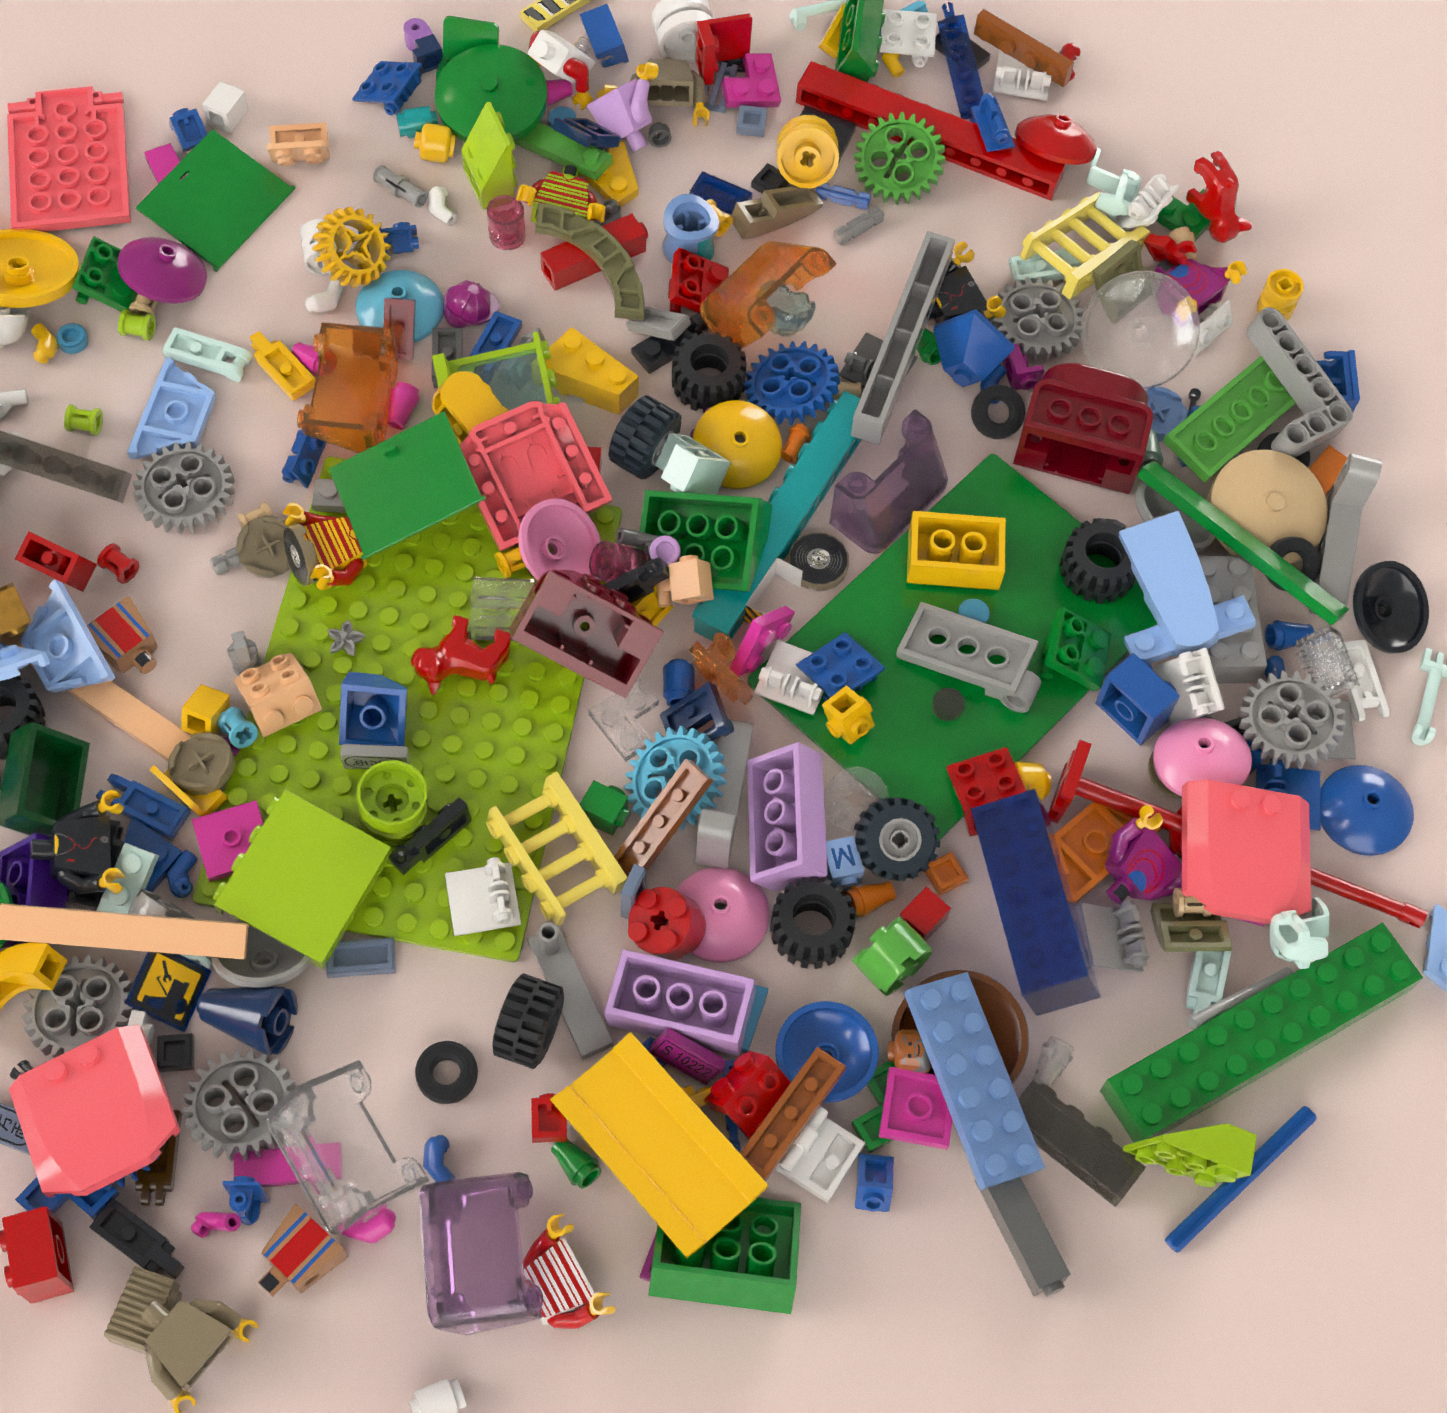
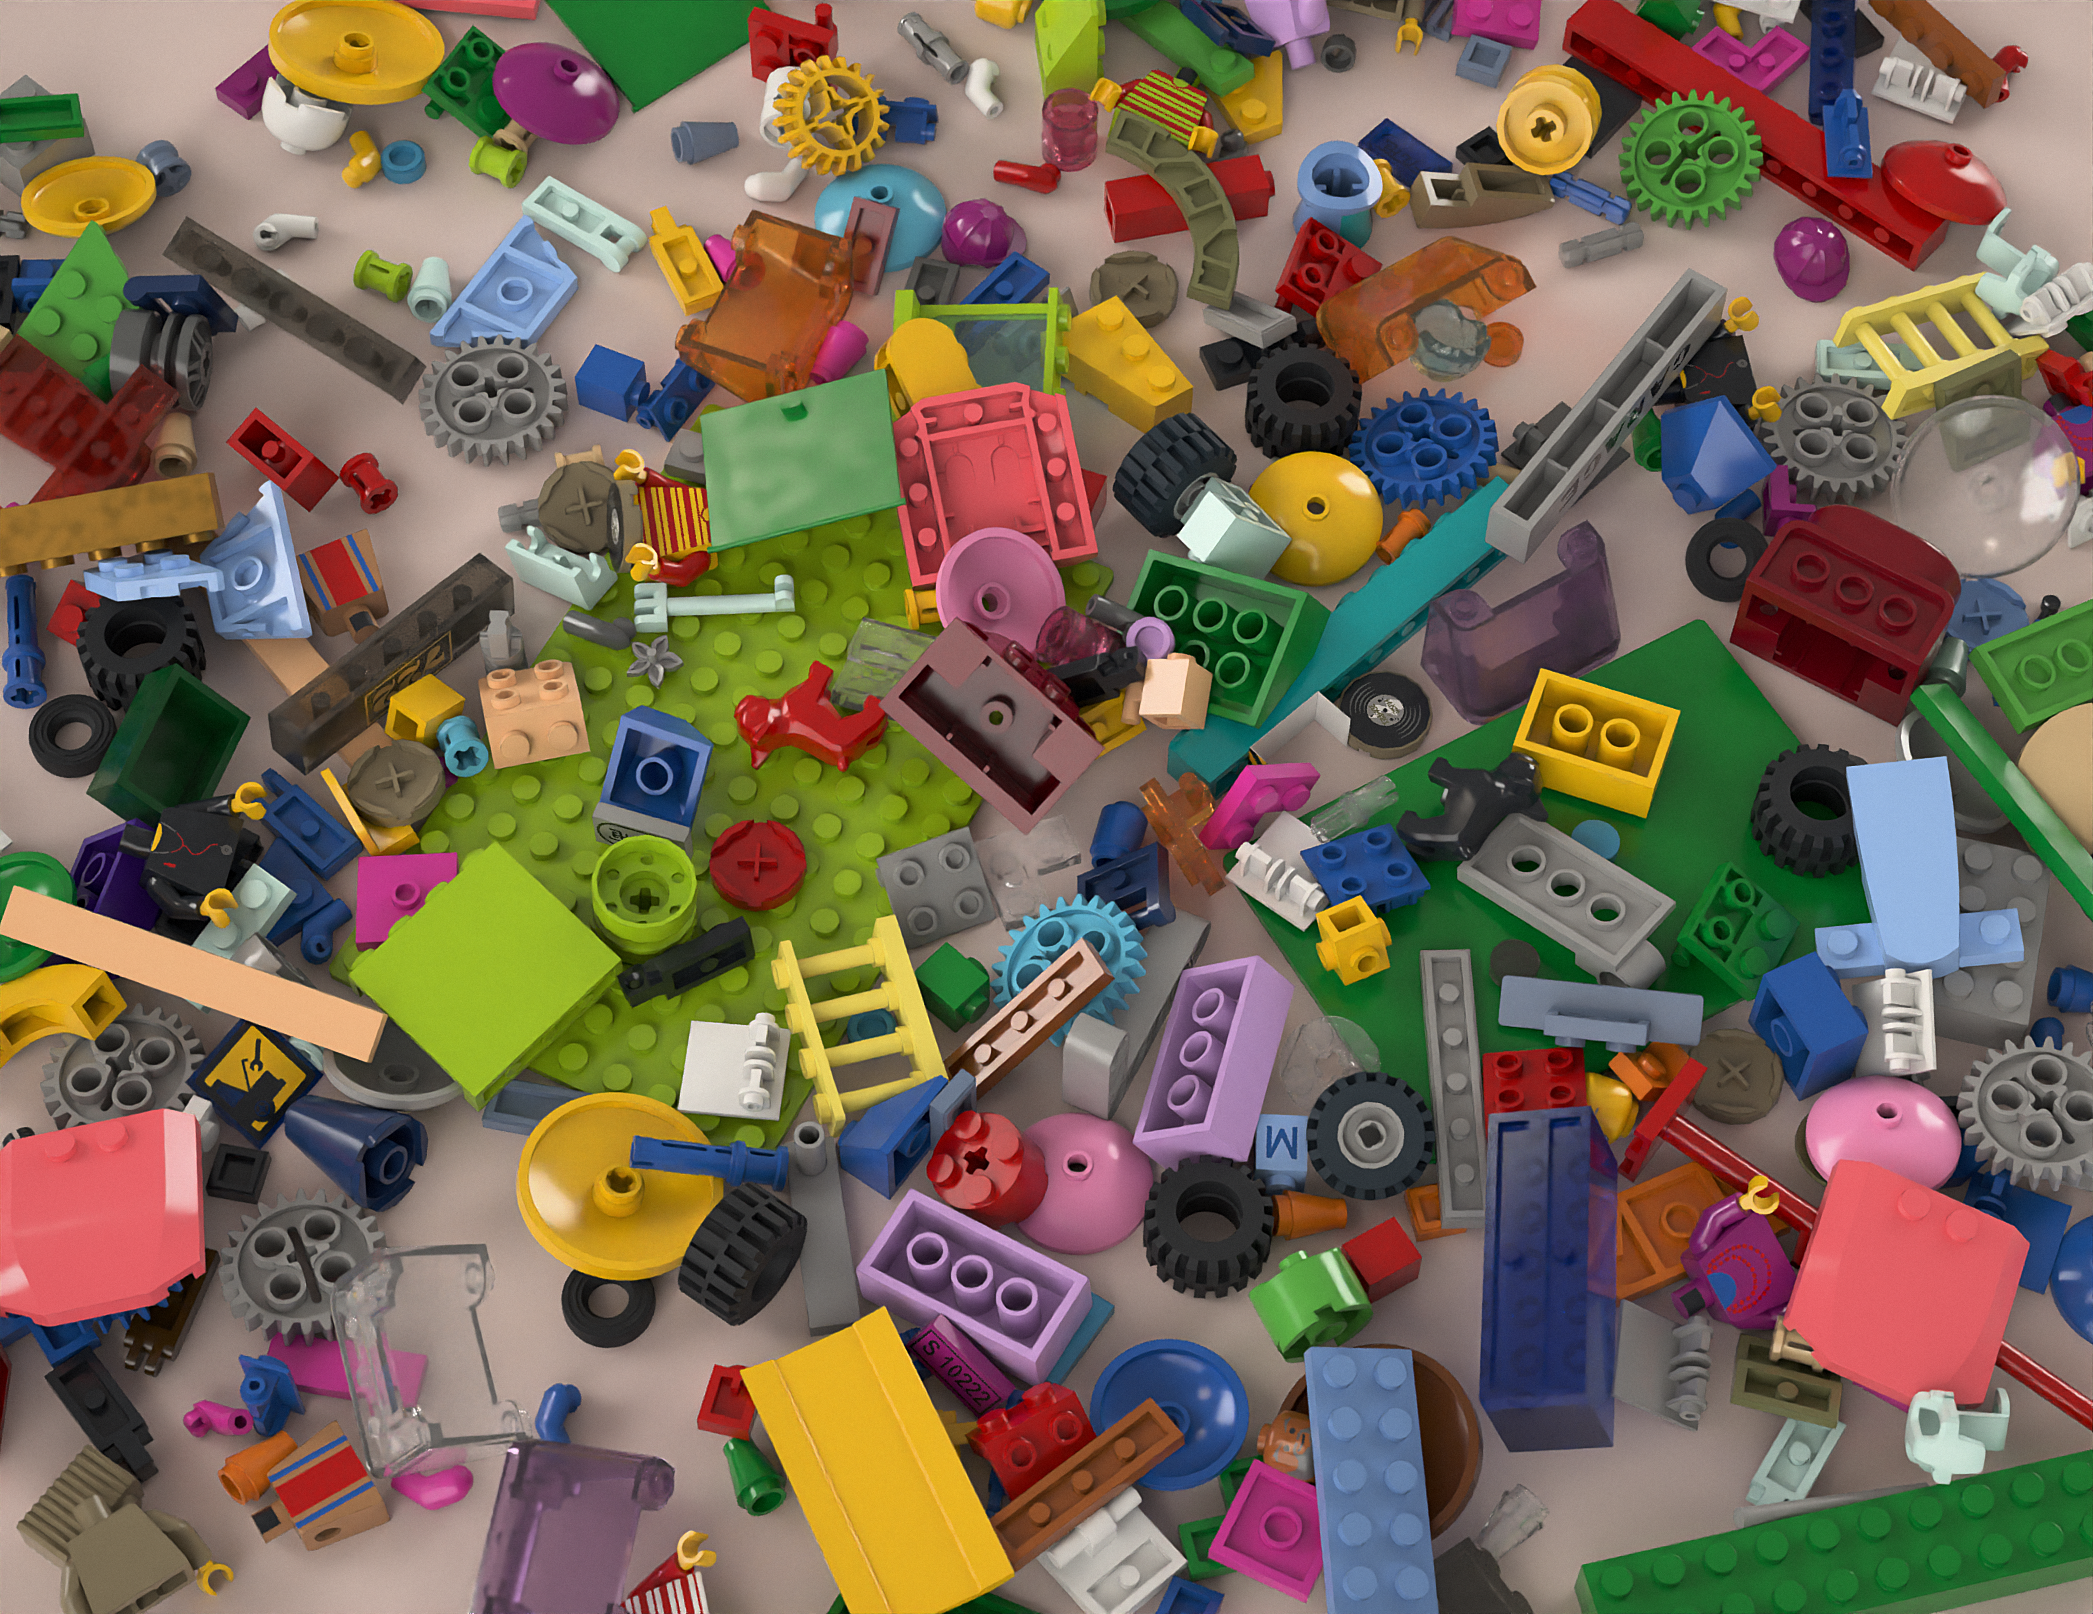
camera: 20 degrees right, 5 degrees down
(119, 423) = (431, 291): none -> light aqua cone
(172, 684) = (407, 648): none -> clear smoke brick
(246, 1252) = (247, 1471): none -> orange cone
(260, 458) = (612, 383): none -> blue brick
(265, 592) = (561, 571): none -> light aqua hinge
(267, 281) = (702, 140): none -> sand blue cone
(308, 203) = (785, 41): none -> red plate
(312, 628) = (613, 636): none -> dark grey arm
(336, 604) = (655, 606): none -> light aqua hinge
(432, 996) = (597, 1209): none -> yellow dish
(455, 758) = (757, 865): none -> red tile
(494, 259) = (1035, 178): none -> red arm
(501, 961) = (733, 1163): none -> blue pin
(559, 847) = (870, 1025): none -> dark azure tile
(574, 744) = (936, 887): none -> light grey hinge
(579, 312) = (1140, 283): none -> dark tan tile
(596, 917) = (890, 1138): none -> blue slope
(821, 628) = (1353, 809): none -> clear axle
(823, 302) = (1505, 345): none -> clear orange tile
(897, 609) = (1473, 807): none -> black animal
(922, 87) = (1760, 66): none -> dark pink plate
(936, 792) = (1455, 1086): none -> light grey tile
(990, 206) = (1812, 258): none -> magenta piece
(1011, 723) = (1600, 1013): none -> sand blue bracket
(1052, 749) = (1650, 1071): none -> orange bracket
(1106, 734) = (1740, 1078): none -> dark tan tile

